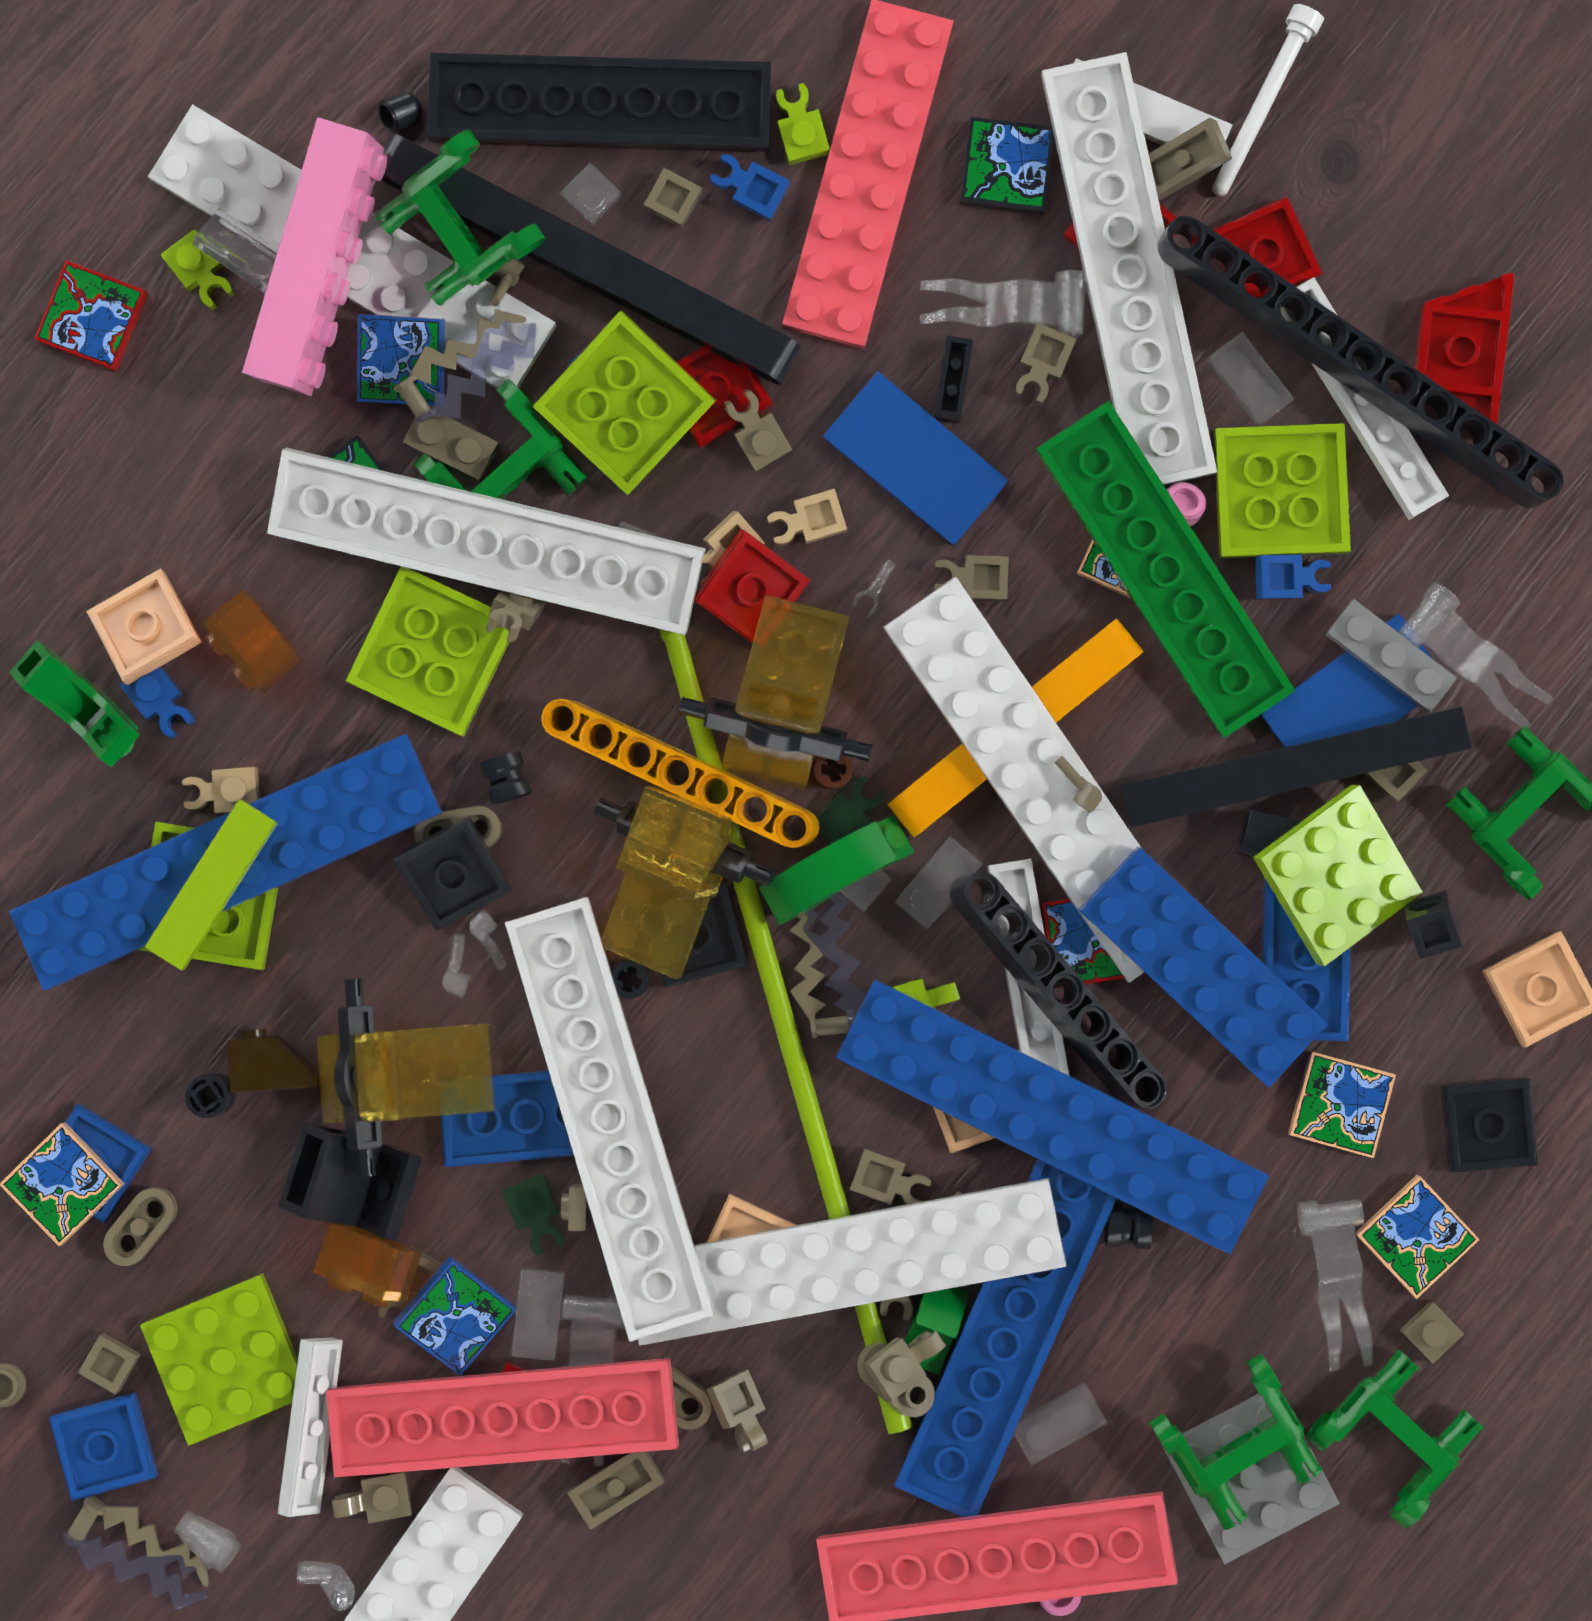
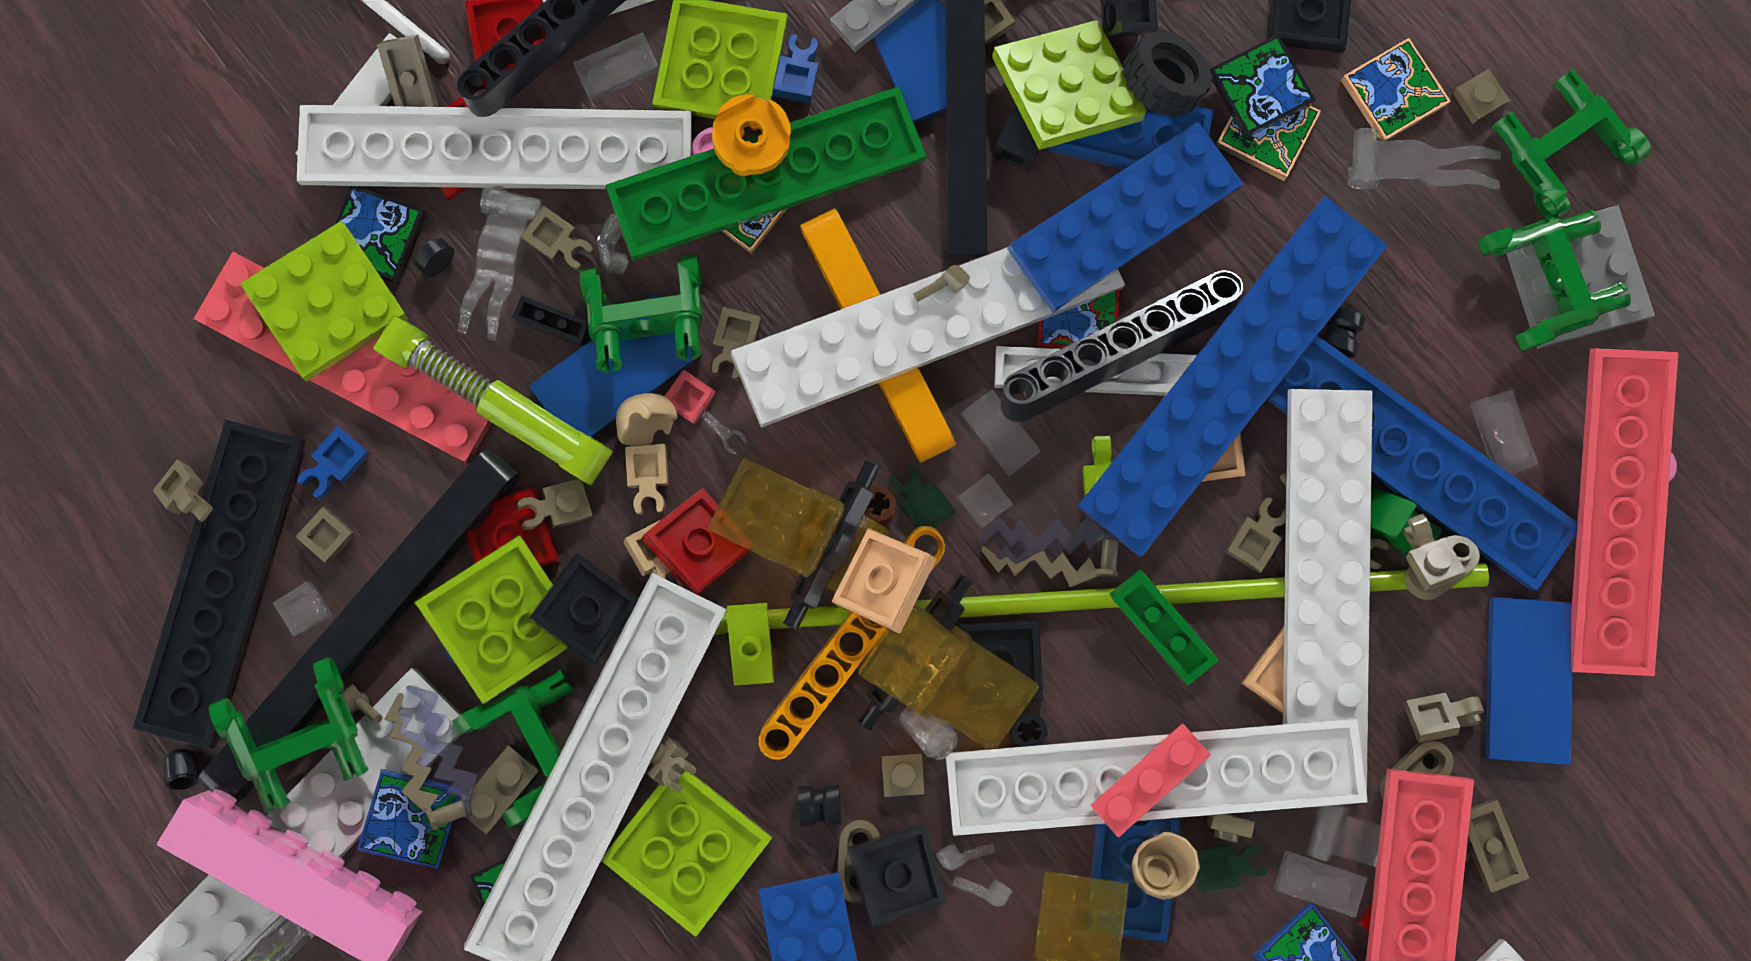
camera: 80 degrees left, 5 degrees down
(520, 1146) = (1165, 866): none -> tan hair
(556, 857) = (903, 775): none -> dark tan plate
(601, 879) = (932, 735): none -> clear cone
(604, 1113) = (1150, 780): none -> coral plate
(654, 487) = (584, 609): none -> black tile
(656, 668) = (750, 644): none -> lime plate
(683, 34) = (180, 490): none -> dark tan plate
(747, 791) = (884, 580): none -> light nougat tile
(768, 1097) = (1164, 627): none -> green plate
(797, 1496) = (1529, 681): none -> blue tile
(802, 130) = (296, 407): lime plate -> none
(818, 433) = (496, 402): none -> lime piece
(836, 868) = (970, 520): green arch -> none
(871, 498) = (643, 416): none -> tan hair
(904, 543) = (690, 396): none -> coral tile
(919, 132) = (323, 301): none -> lime plate
(987, 508) = (668, 315): none -> green connector
(994, 236) = (434, 257): none -> black tile
(1045, 418) = (607, 247): none -> clear arm
(1174, 540) = (749, 157): none -> light orange plate
(1384, 1086) = (1261, 86): none -> tile
(1397, 991) = (1156, 89): none -> black tyre

